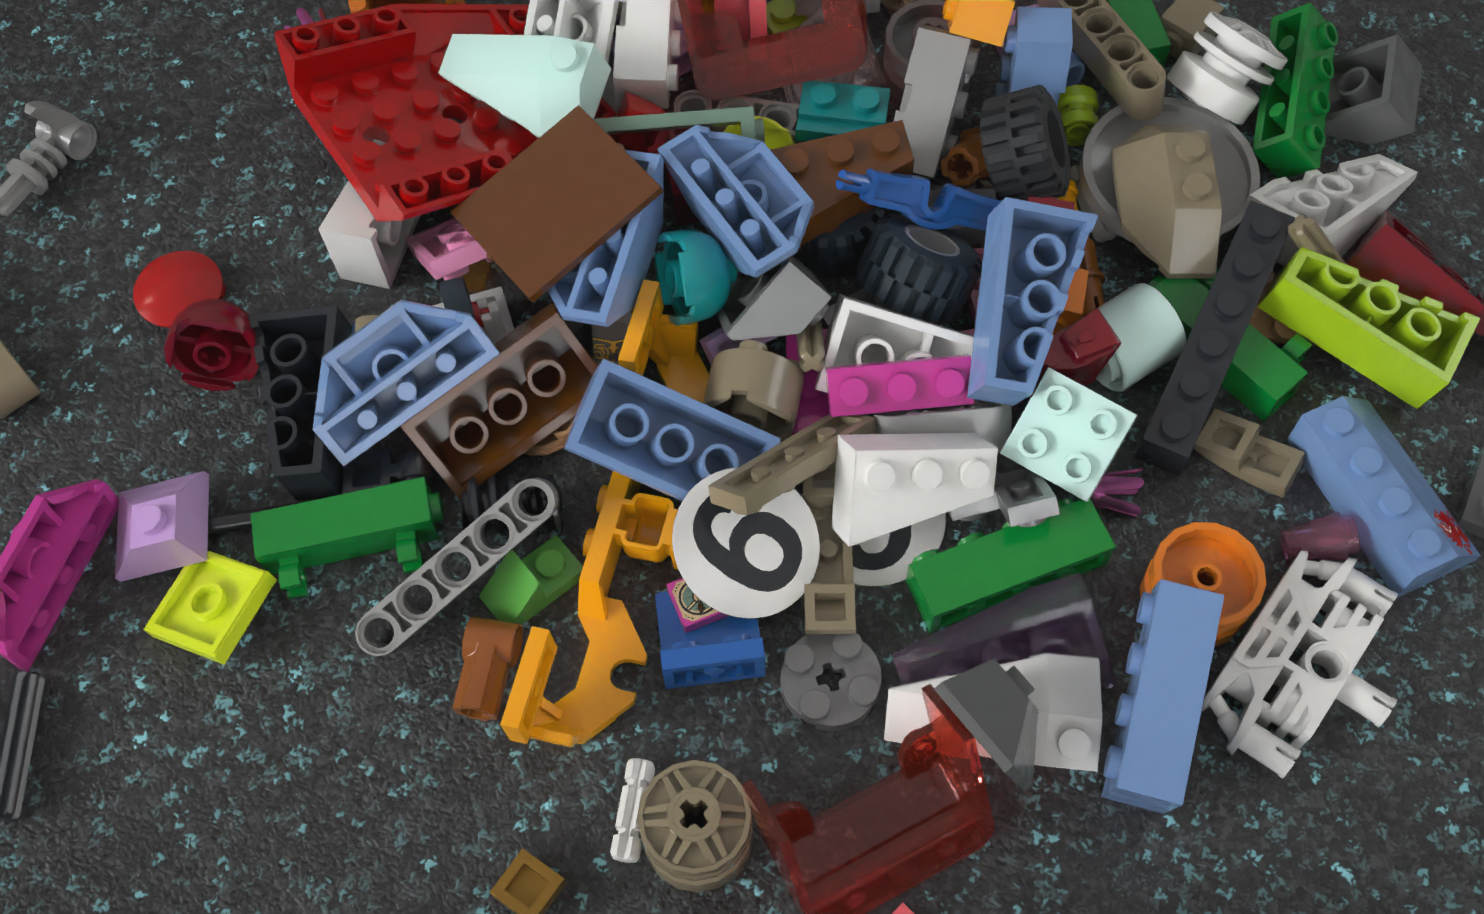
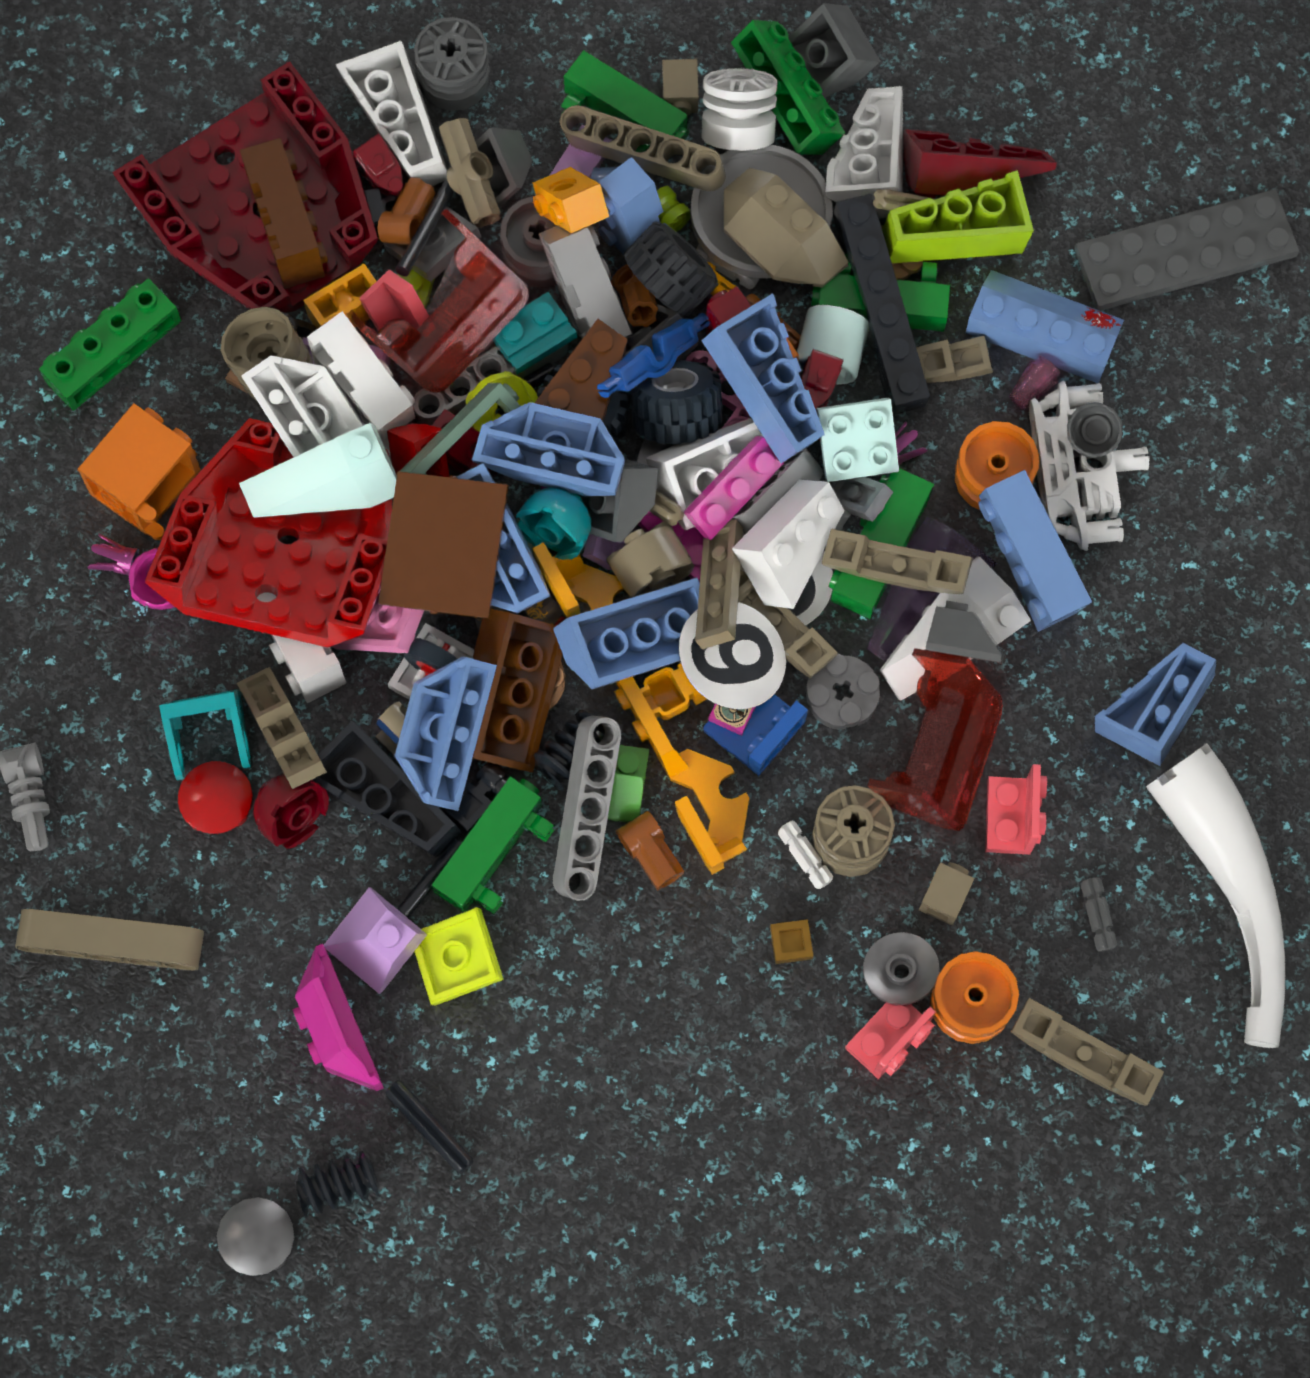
camera: 45 degrees left, 10 degrees up
(203, 195) = (173, 711): none -> teal hose
(276, 274) = (281, 728): none -> dark tan slope
(996, 589) = (897, 564): none -> dark tan slope
(1347, 626) = (1094, 430): none -> dark grey hair

